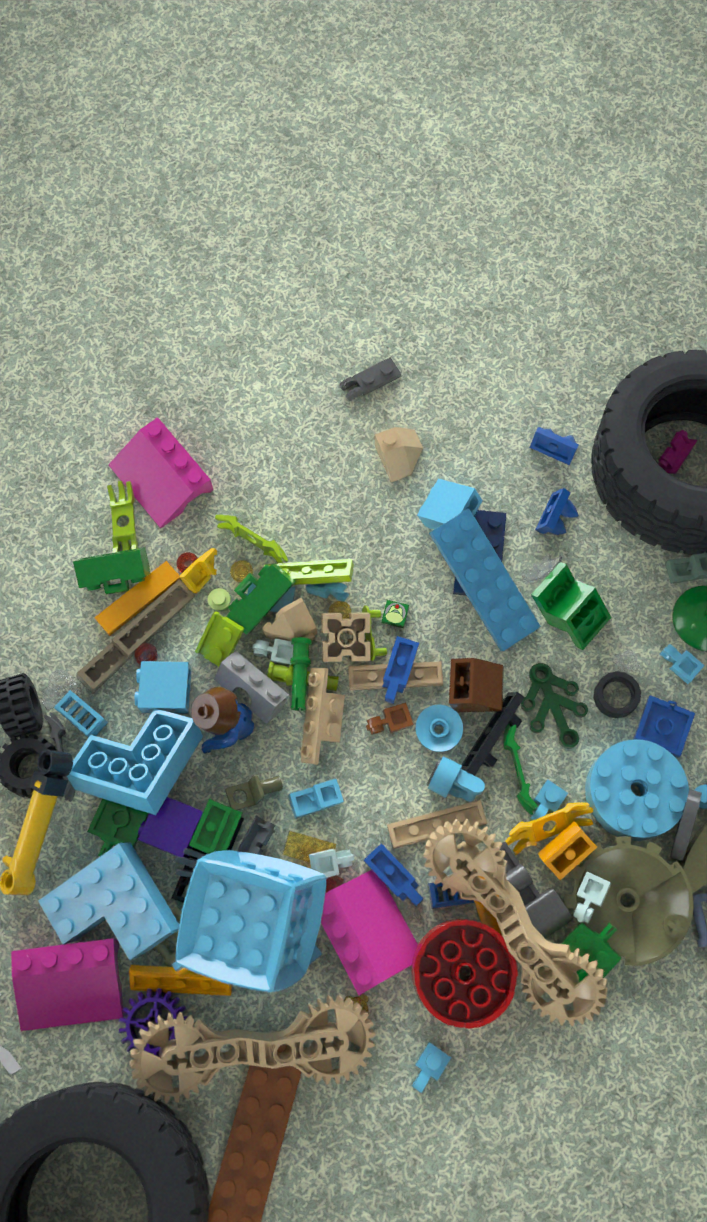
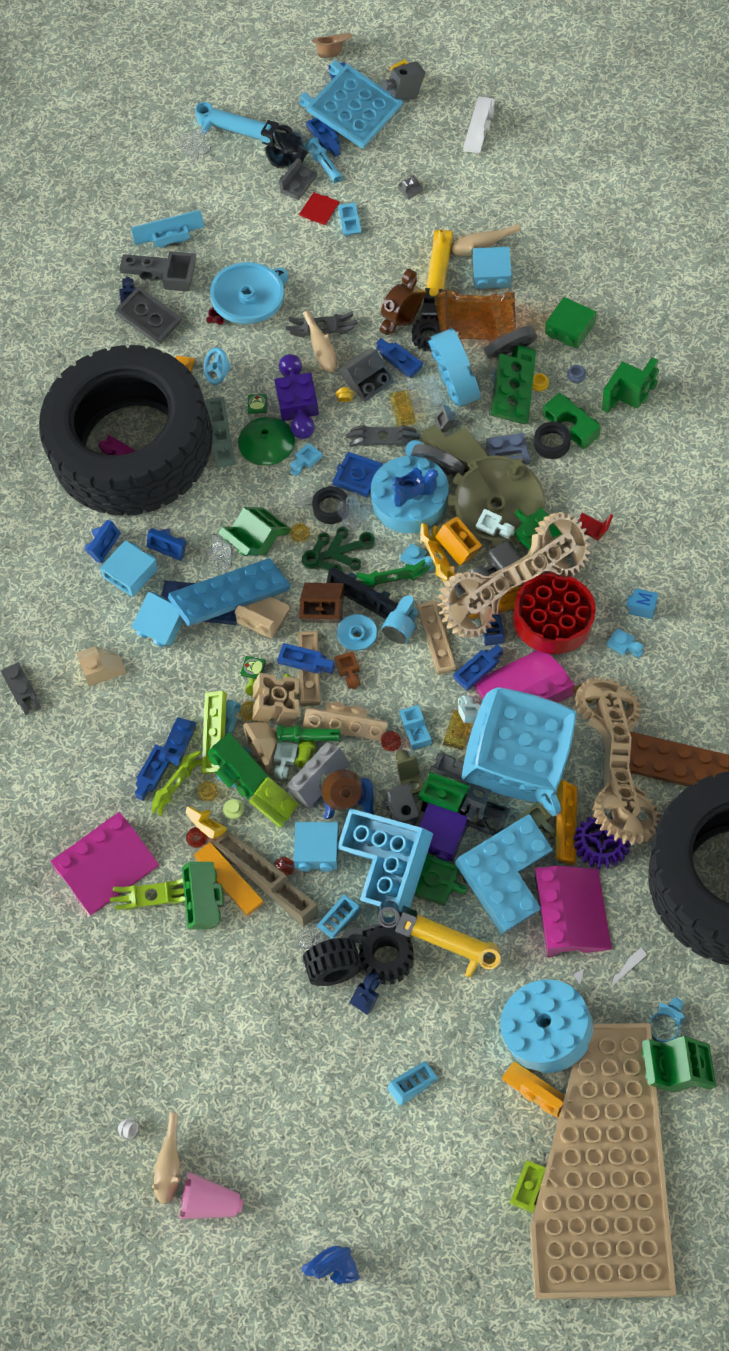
camera: 85 degrees left, 10 degrees down
(209, 779) = (401, 805): none -> dark grey torso
(267, 514) = (150, 773): none -> blue hinge
(296, 769) = (390, 741): none -> clear red plate
(299, 536) = (178, 741): none -> blue plate
(459, 622) = (263, 616): none -> tan bracket
(486, 1094) = (642, 603): none -> dark azure brick
(518, 473) = (129, 568): none -> medium azure brick
(577, 660) = (300, 532): none -> clear yellow plate
(601, 1032) = (594, 527): none -> red bracket
(610, 721) = (353, 509): none -> clear plate
(635, 797) = (413, 485): none -> blue hair

